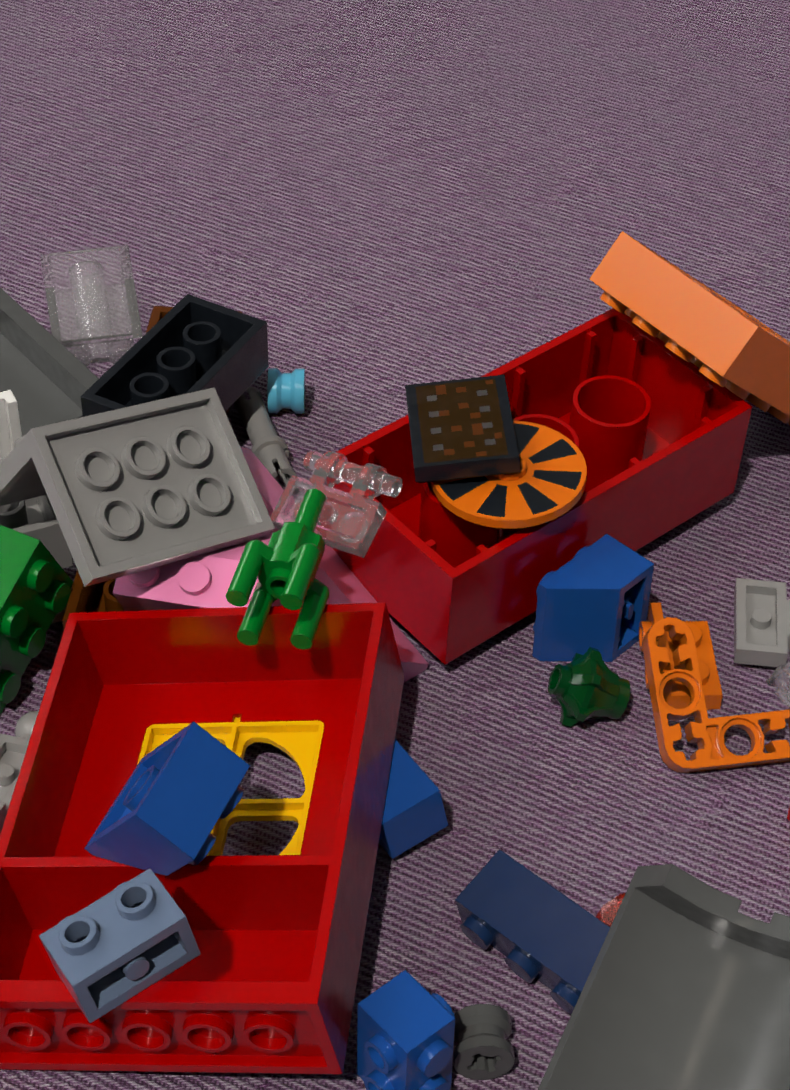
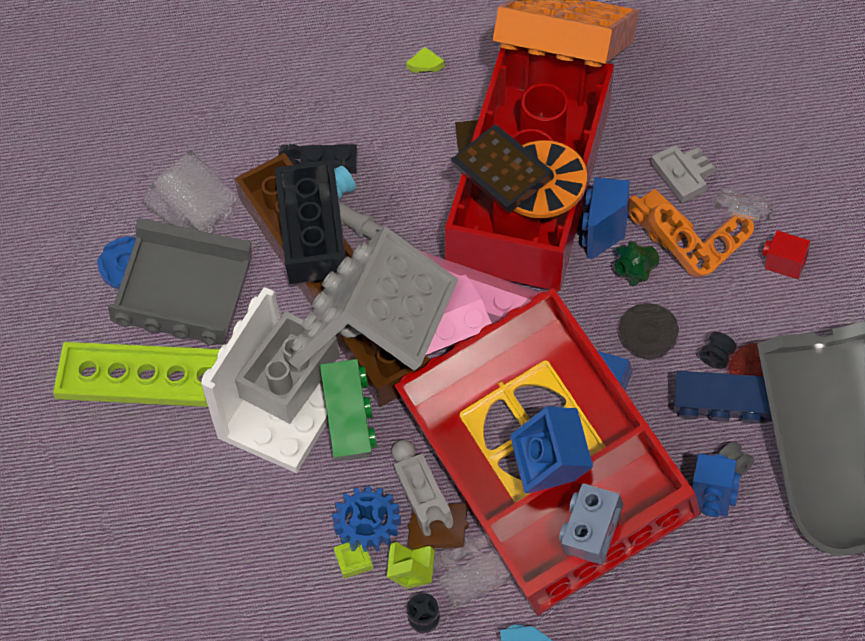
camera: 30 degrees left, 15 degrees up
(286, 573) = (501, 300): green plant -> none
(324, 371) = (342, 154): none -> black hinge
(347, 519) = (479, 255): clear plate -> none
(528, 791) = (648, 331): none -> clear smoke tile
(533, 327) = (425, 61): none -> lime tile
(602, 873) = (717, 350): none -> black wheel

